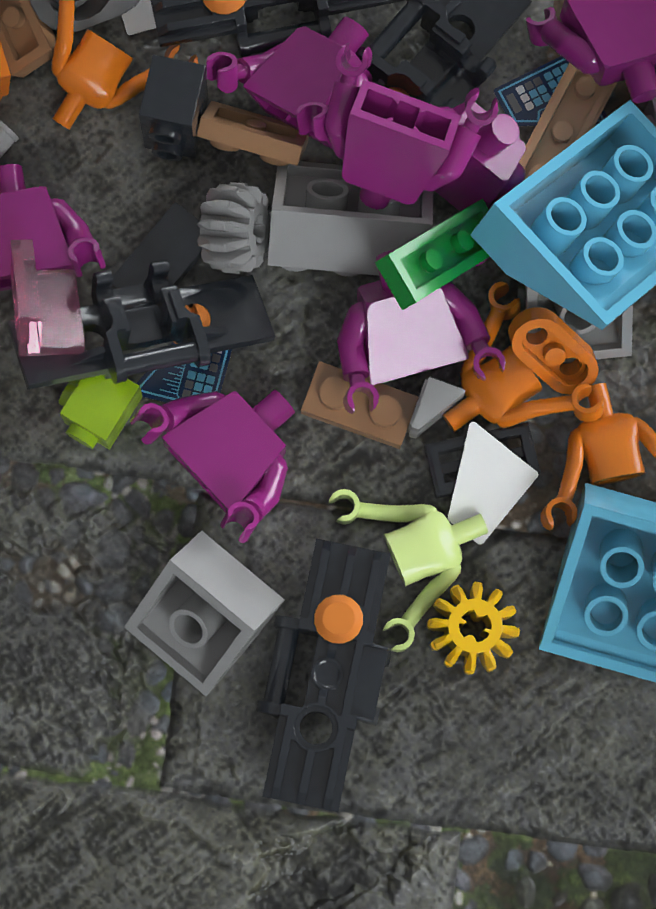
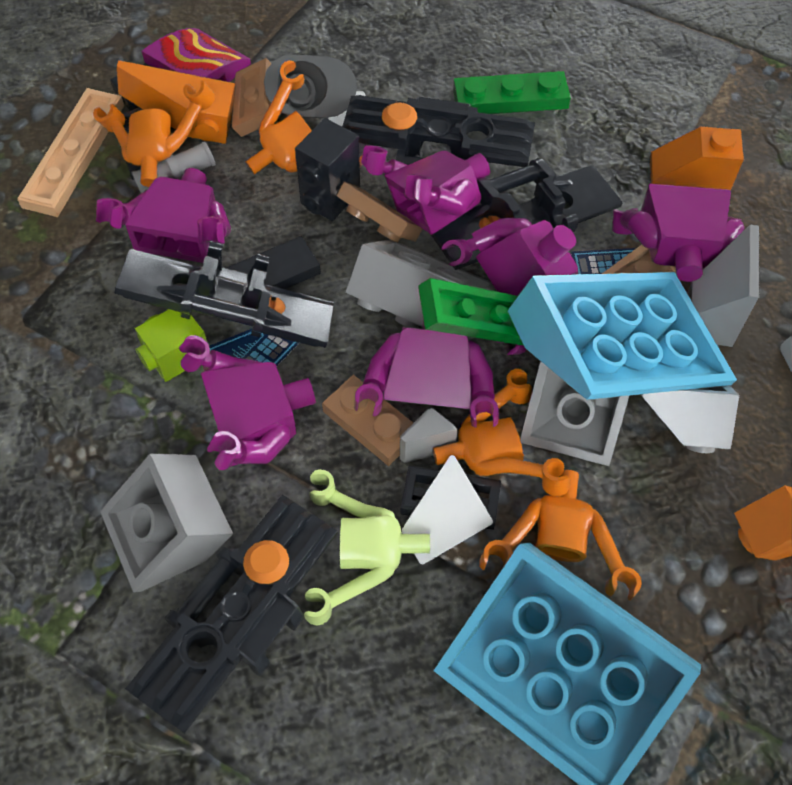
camera: 30 degrees right, 20 degrees down
(44, 306) = (152, 247): clear pink panel -> none
(234, 227) = (330, 257): light grey gear -> none
(394, 141) = (475, 217): magenta torso -> none
(477, 610) = (399, 616): yellow gear -> none
(550, 347) = (542, 426): orange plate -> none

